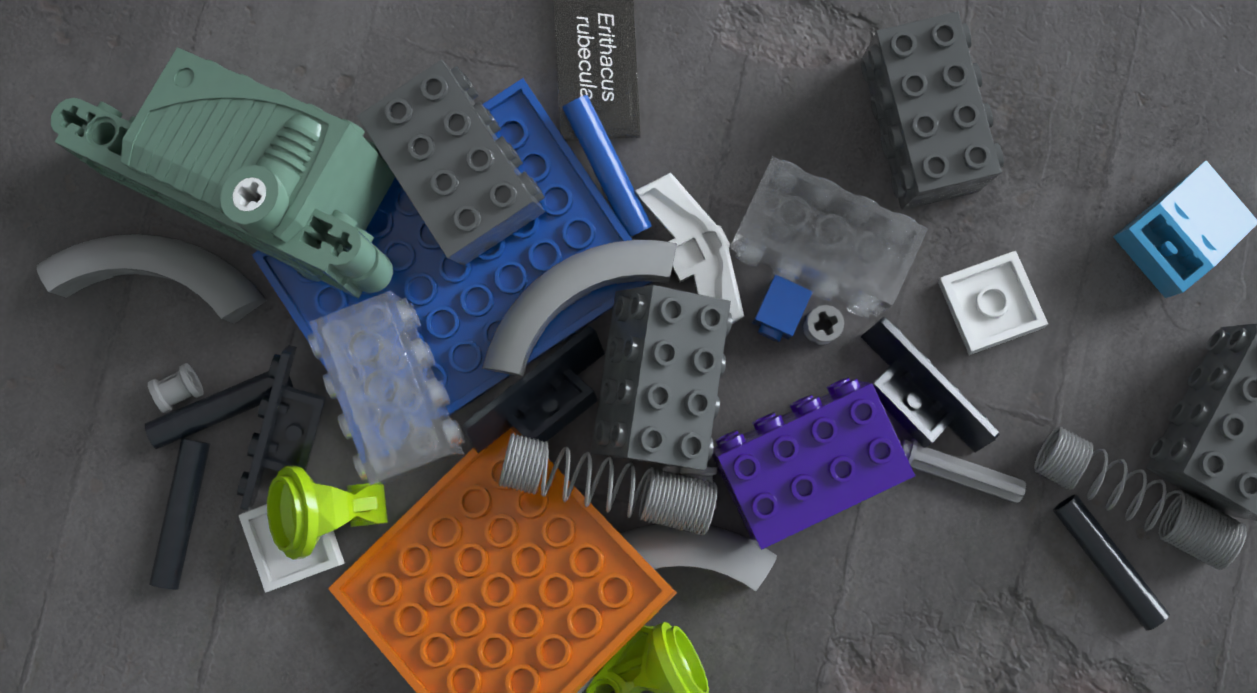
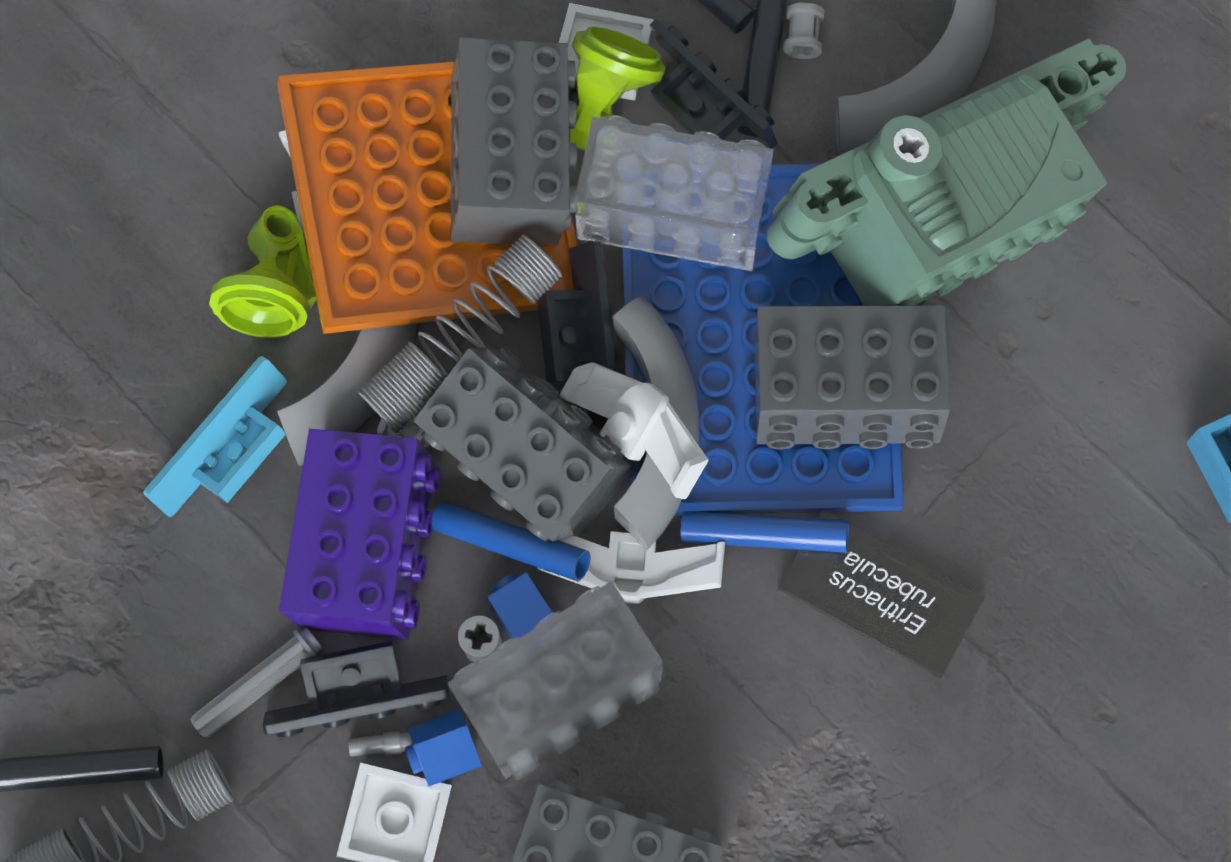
camera: 125 degrees right, 10 degrees down
(423, 547) = (511, 141): none -> dark grey brick
(592, 299) = (639, 422): none -> white plate
(739, 350) = (510, 541): none -> blue piece
(800, 617) = (225, 445): none -> medium azure bracket
(923, 298) = (442, 748): none -> brick
(937, 343) = (388, 743): none -> light grey piece

